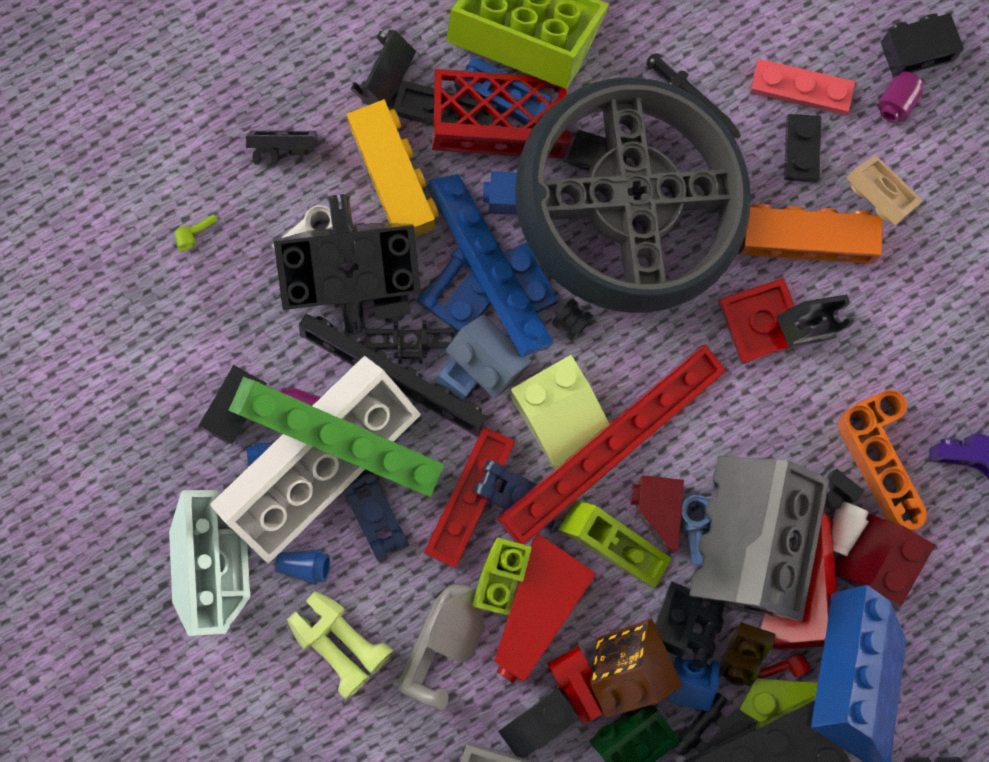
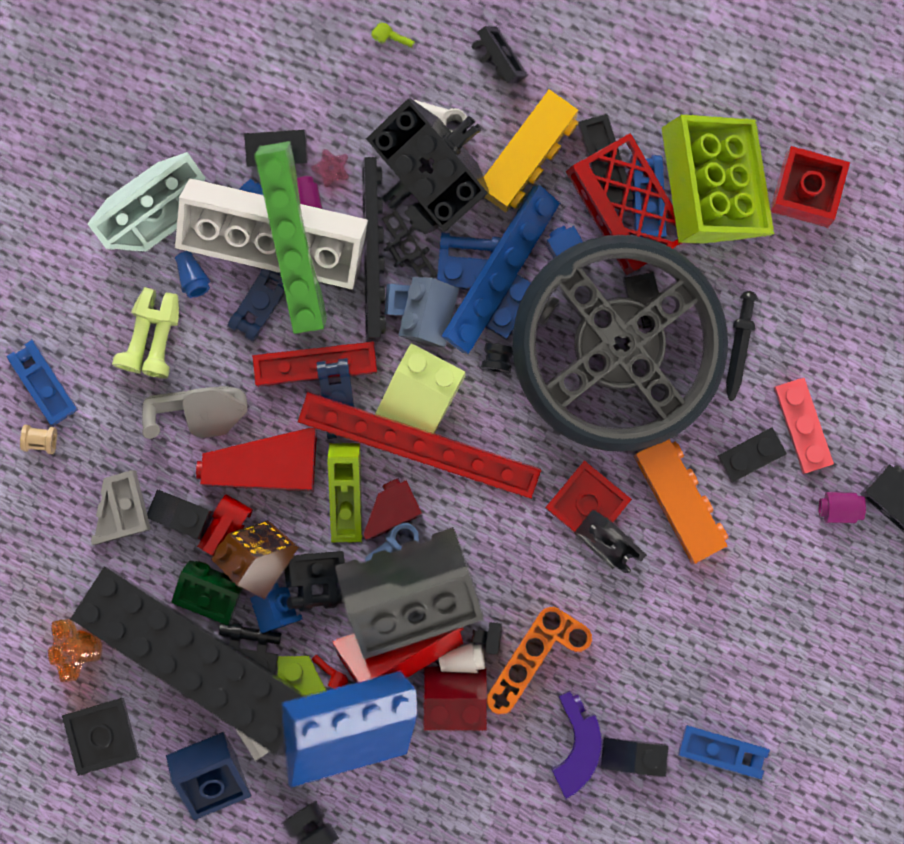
camera: 65 degrees right, 5 degrees up
(292, 372) = (330, 176): none -> clear pink plate
(387, 69) = (607, 97): black hinge -> none
(500, 575) = (266, 421): lime slope -> none
(745, 654) = (318, 635): dark brown slope -> none
(884, 190) = (752, 536): tan plate -> none

